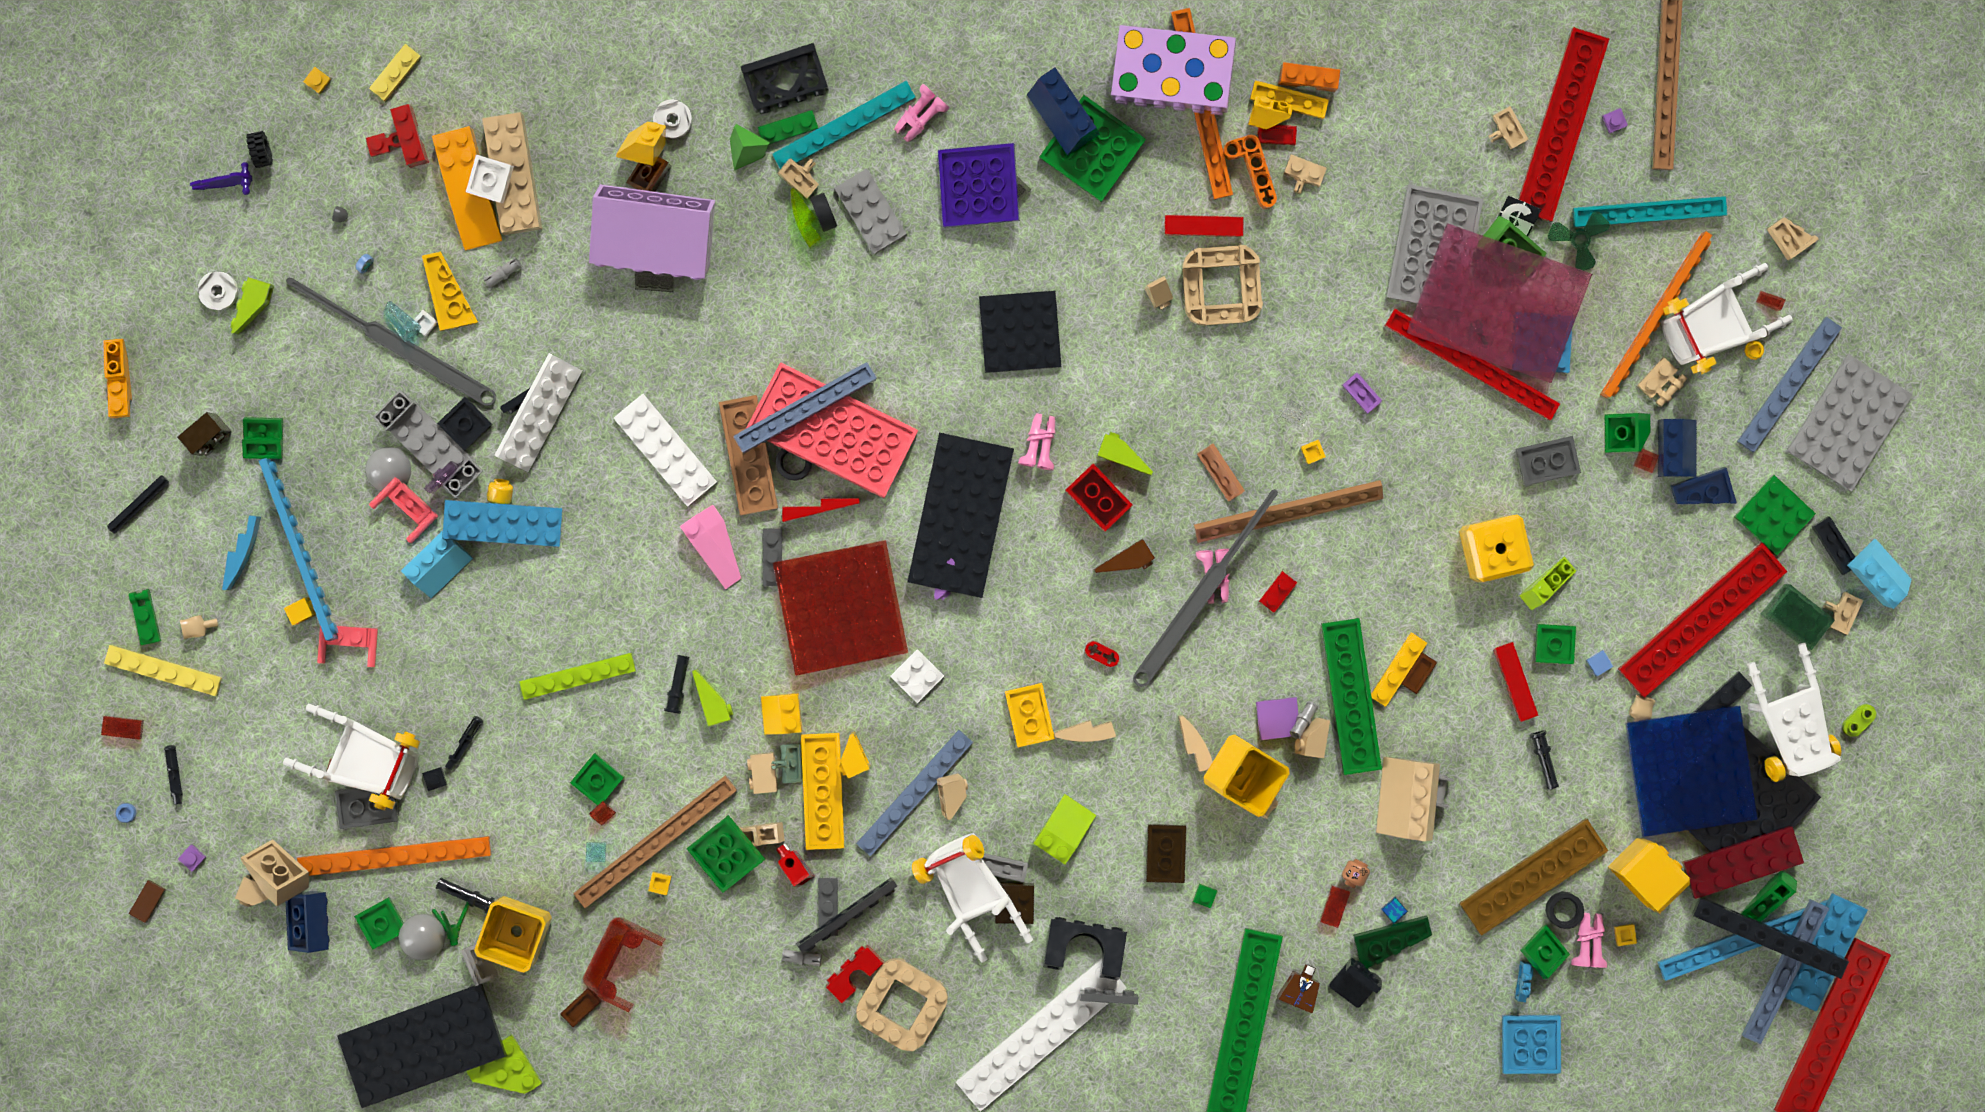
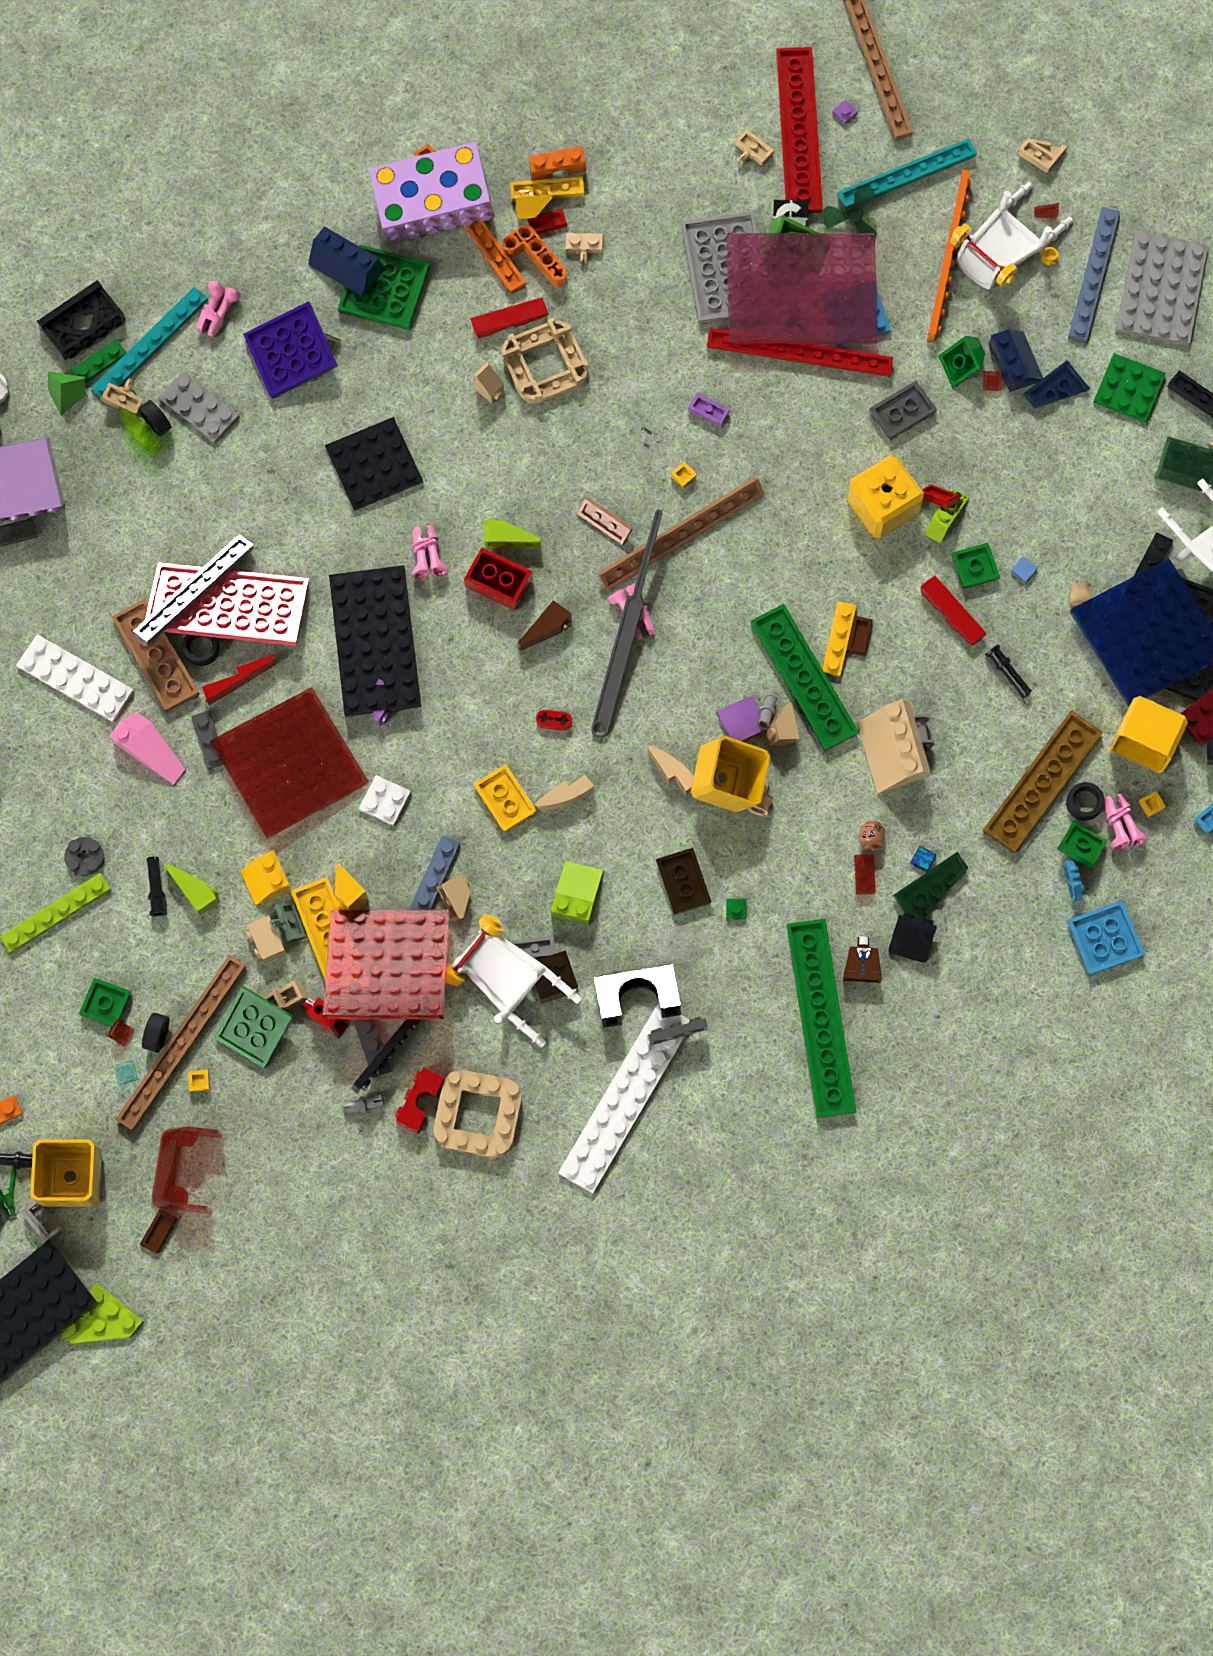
camera: 25 degrees left, 15 degrees down
(630, 625) = (91, 864): none -> dark grey plate
(634, 827) = (155, 1032): none -> black tyre
(865, 843) = (386, 964): none -> clear red plate
(1278, 591) = (698, 608): red plate -> none
(1548, 564) = (940, 496): none -> red tile
(1657, 378) = (973, 307): tan plate -> none
(1702, 620) = (1102, 499): red plate -> none

